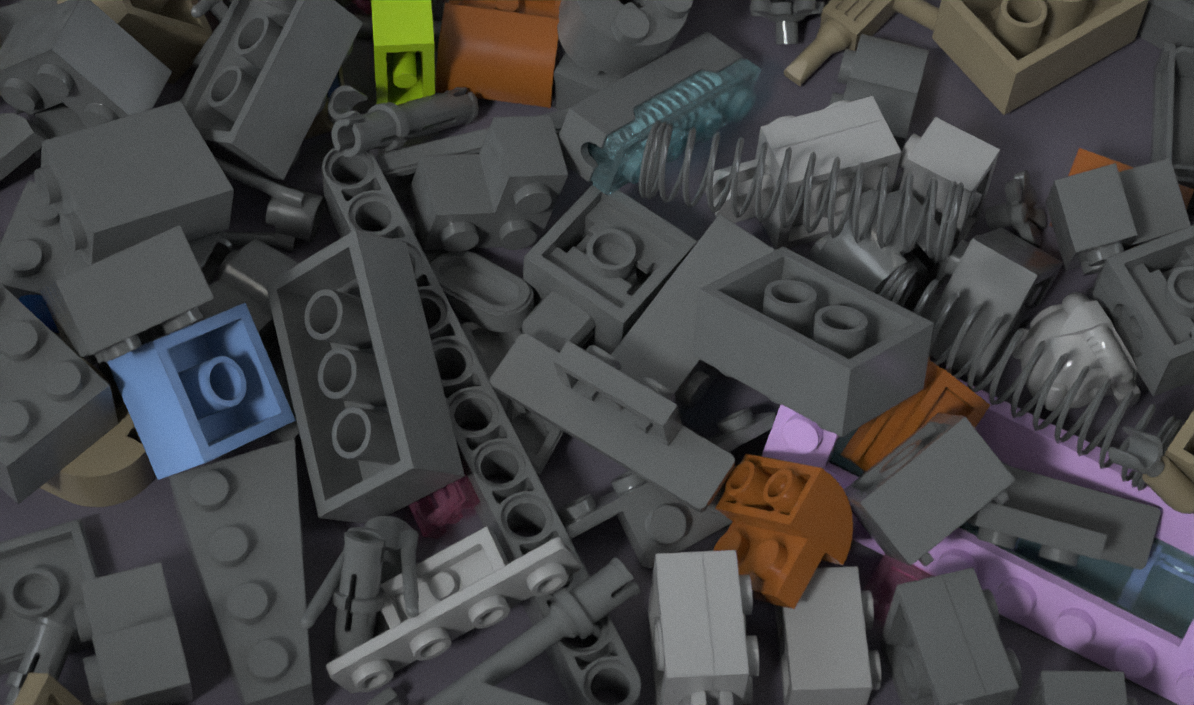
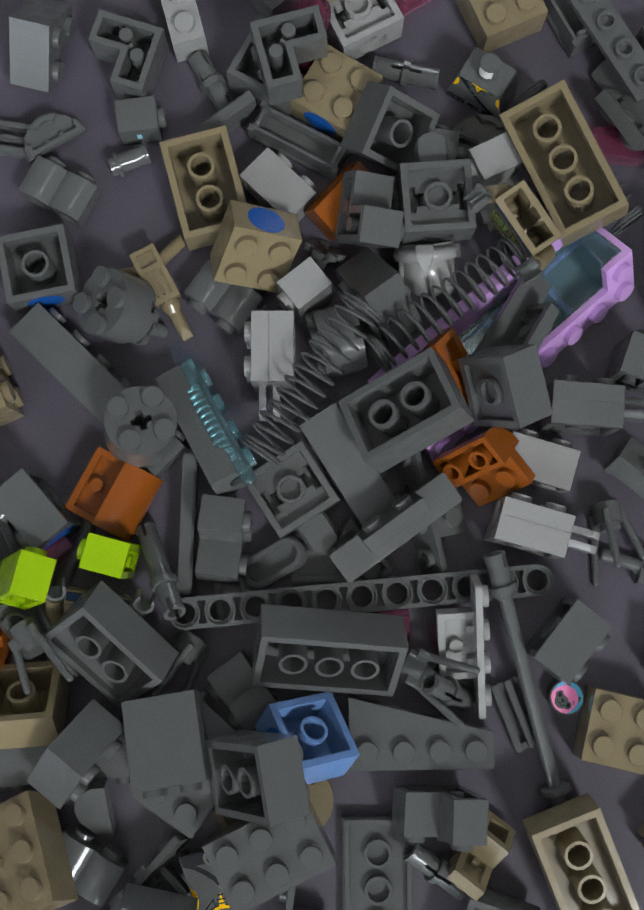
camera: 65 degrees left, 25 degrees up
(982, 79) = (255, 246): none -> dark tan brick
(1094, 113) = (277, 185): none -> light grey brick

